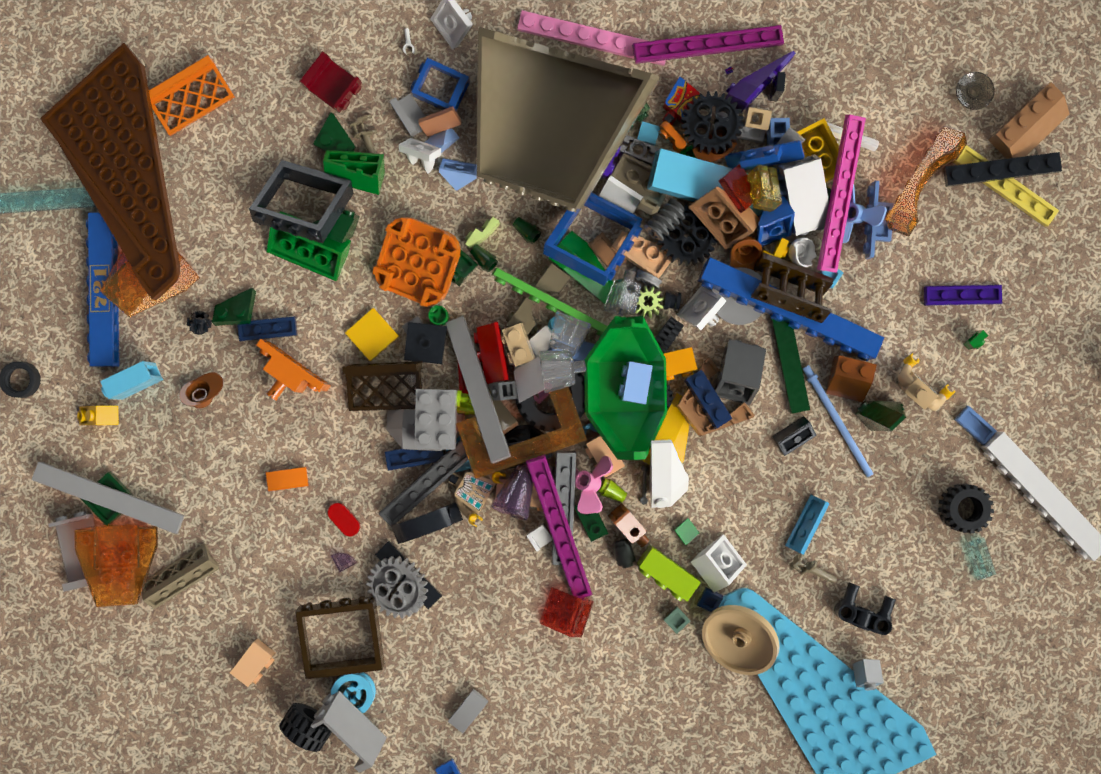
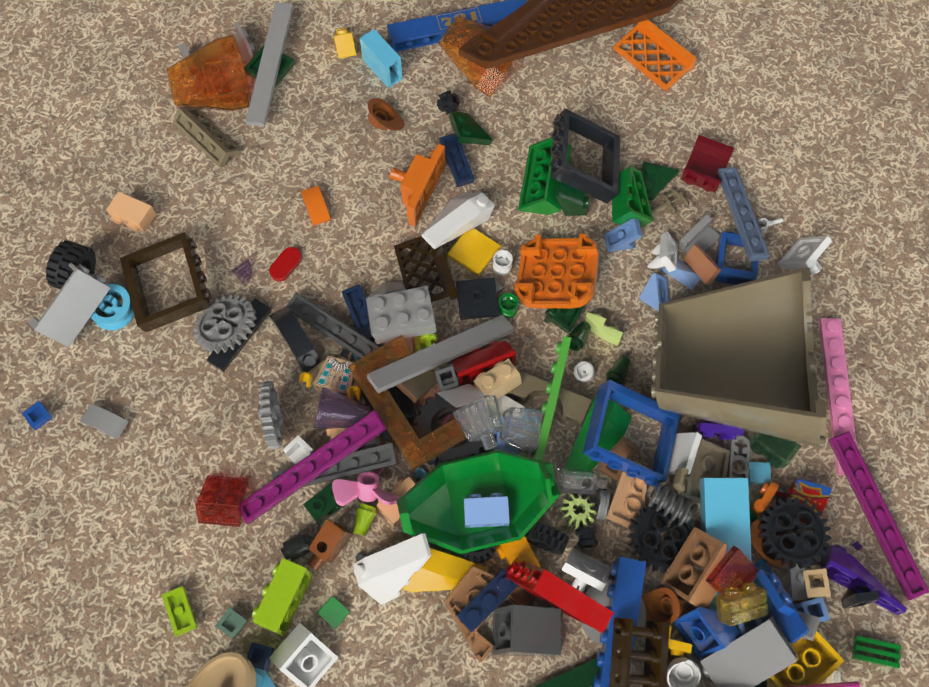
camera: 75 degrees right, 20 degrees down
(335, 342) = (458, 217): none -> white wedge
(389, 310) = (503, 258): none -> white wheel
(392, 187) = (623, 236): none -> medium blue slope
(396, 66) = (743, 214): none -> sand blue tile
(504, 557) = (270, 415): none -> light grey gear
(519, 261) = (584, 371): none -> white tile
(656, 663) = (179, 611): none -> lime plate
(725, 339) = (559, 594): none -> red window
(824, 72) = (896, 656): none -> green tile

